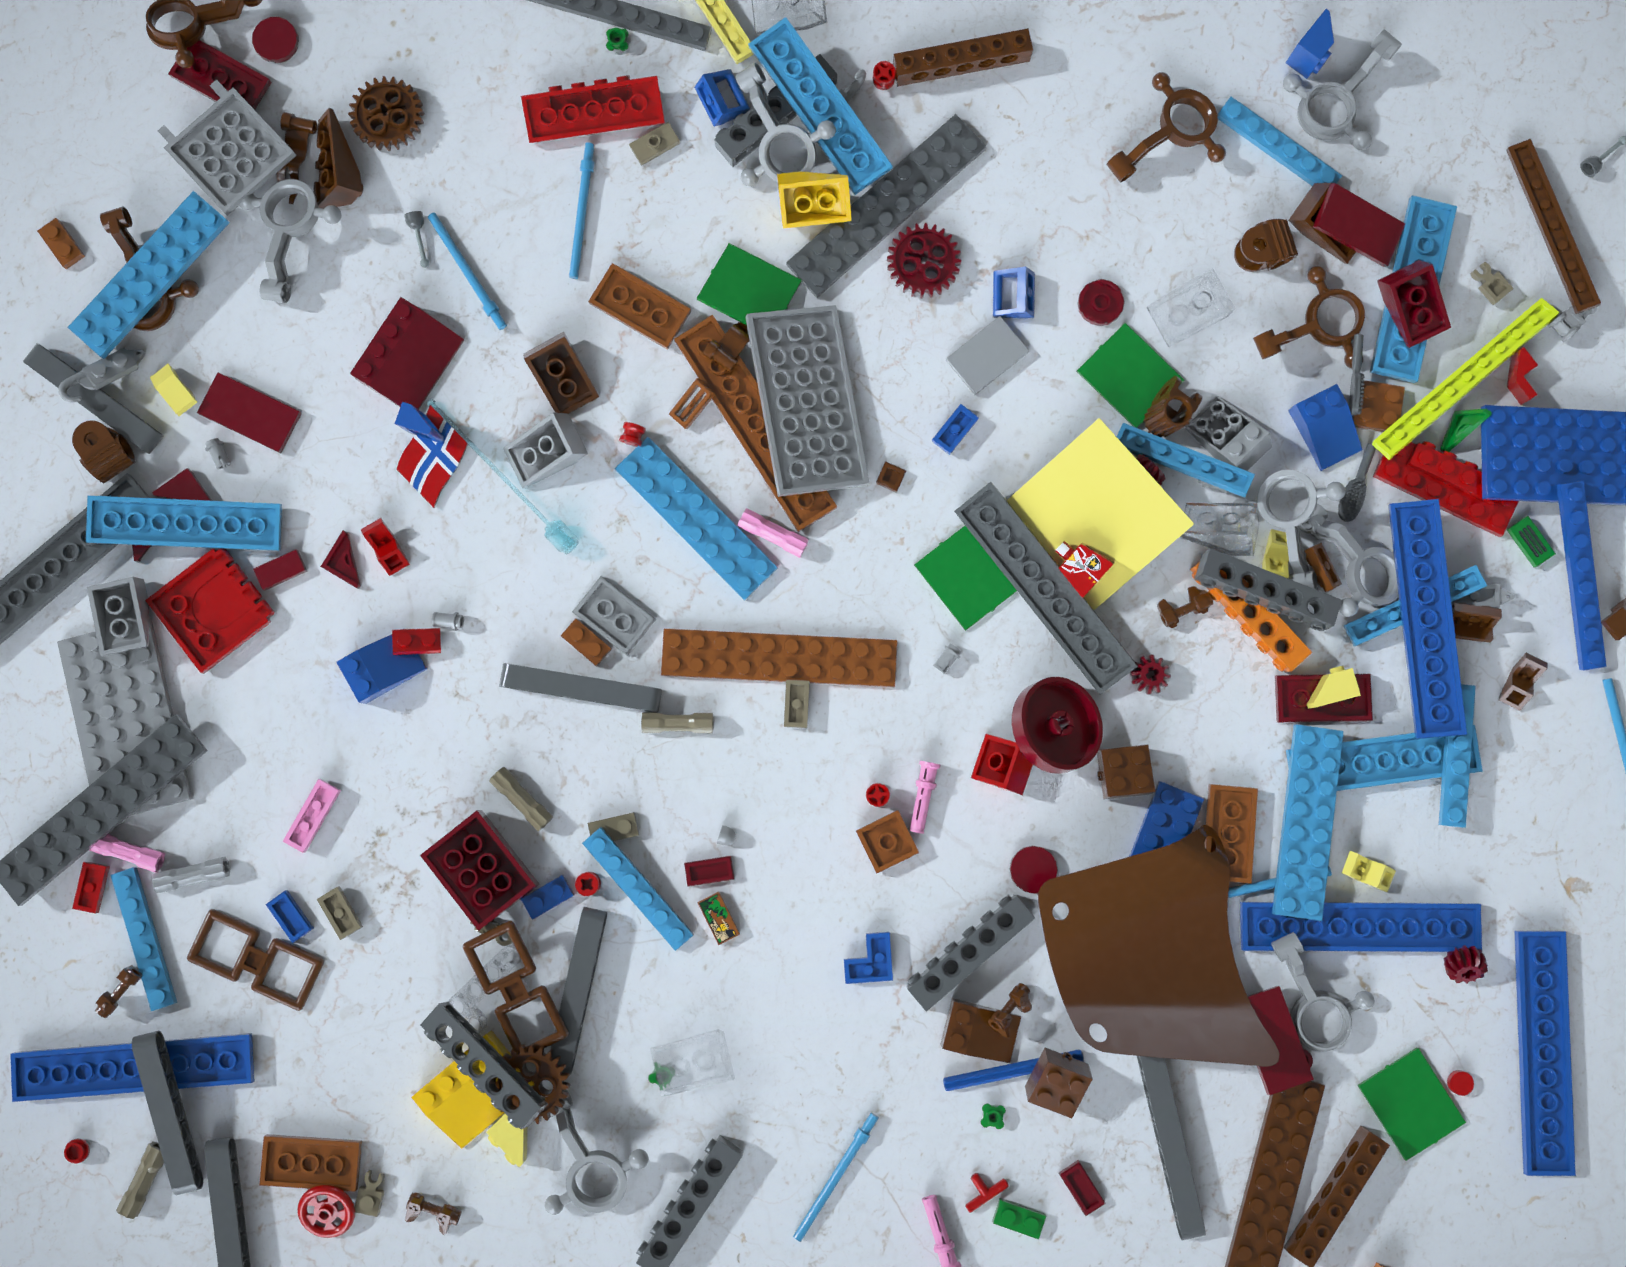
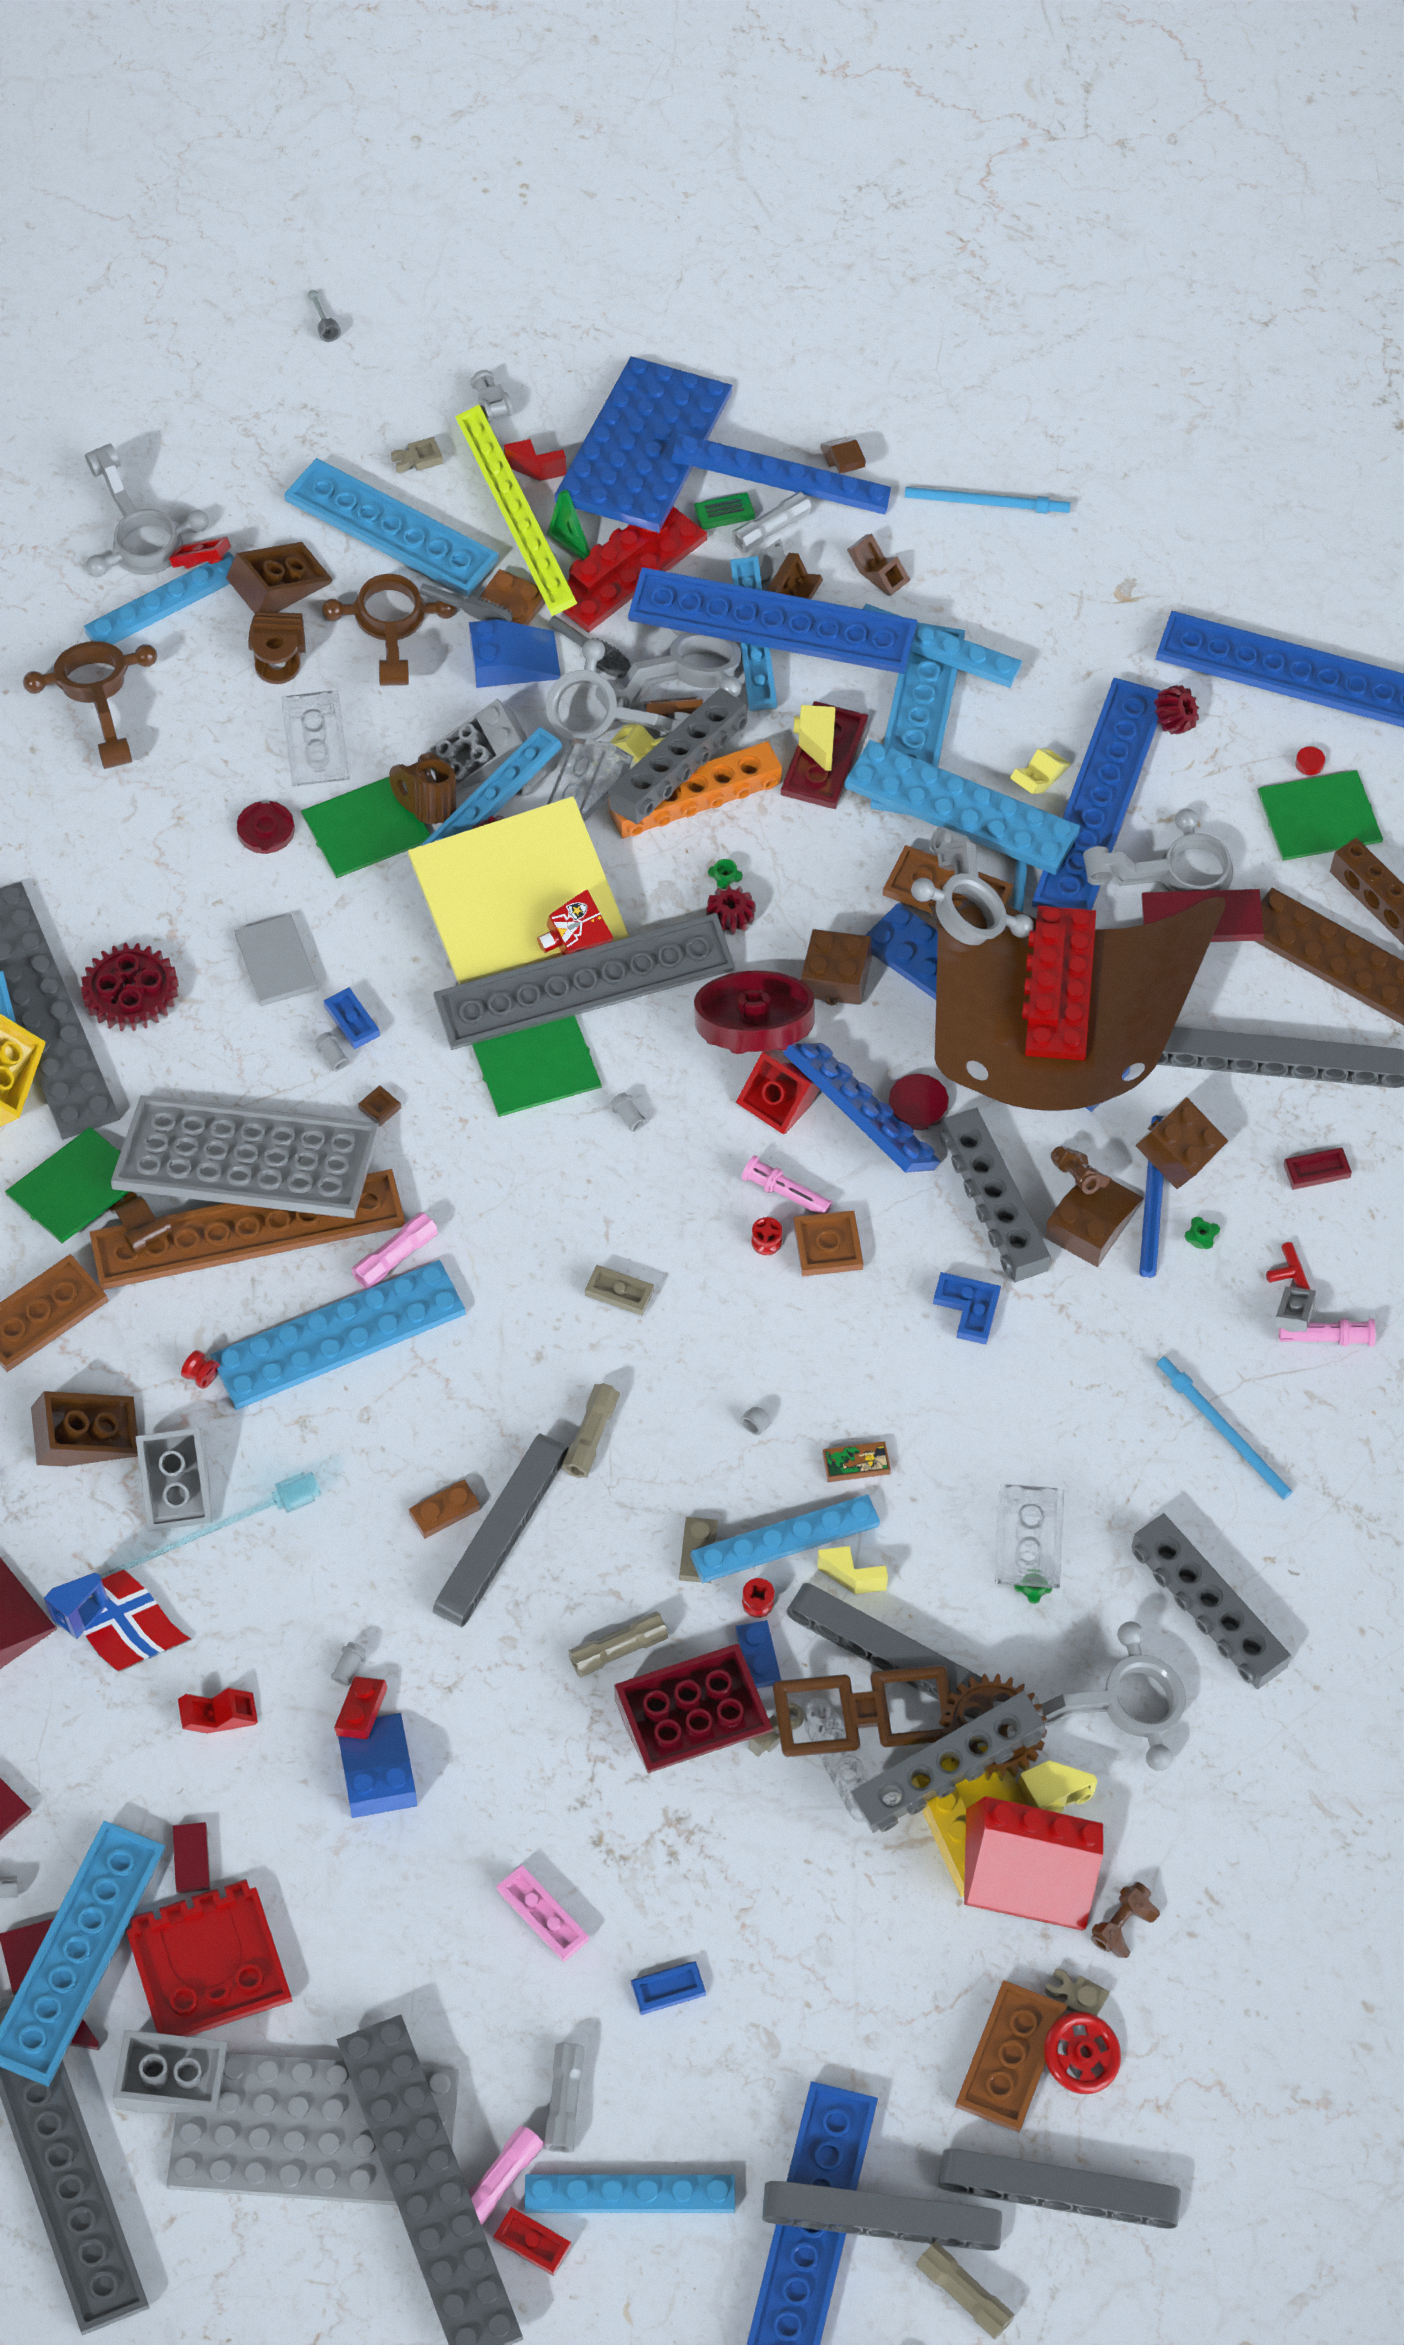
camera: 75 degrees left, 25 degrees down
(108, 1001) = (701, 2256): reddish brown piece -> none
(255, 960) = (710, 2051): reddish brown bar -> none
(339, 913) = (687, 1916): dark tan plate -> none
(341, 561) = (214, 1776): dark red tile -> none
(441, 1139) = (1031, 1862): none -> slope
(614, 615) = (423, 1466): light grey tile -> none
(630, 933) = (838, 1565): none -> light yellow slope
(704, 389) = (203, 1313): dark orange tile -> none
(709, 871) = (792, 1455): dark red tile -> none
(779, 657) = (552, 1298): dark orange plate -> none
(922, 425) = (331, 1050): none -> light grey pin
(946, 1207) = (1295, 1309): none -> light grey plate
(1006, 831) = (864, 1109): none -> blue plate
(1019, 1218) = (1334, 1245): green plate -> none
(1025, 293) = (198, 888): tile -> none
(1170, 947) = (1059, 983): none -> red plate
(1188, 654) = (725, 866): none -> green plate
(1197, 603) = (665, 839): reddish brown piece -> none
(1255, 833) = (960, 855): none -> light grey piece
(1314, 47) = (68, 526): blue slope -> none
(1329, 154) = (204, 551): none -> red plate
(1359, 225) = (295, 548): dark red tile -> none
(1415, 302) = (408, 523): dark red slope -> none
(1518, 573) = (788, 512): none -> light grey axle
(1553, 226) = (380, 379): reddish brown plate -> none

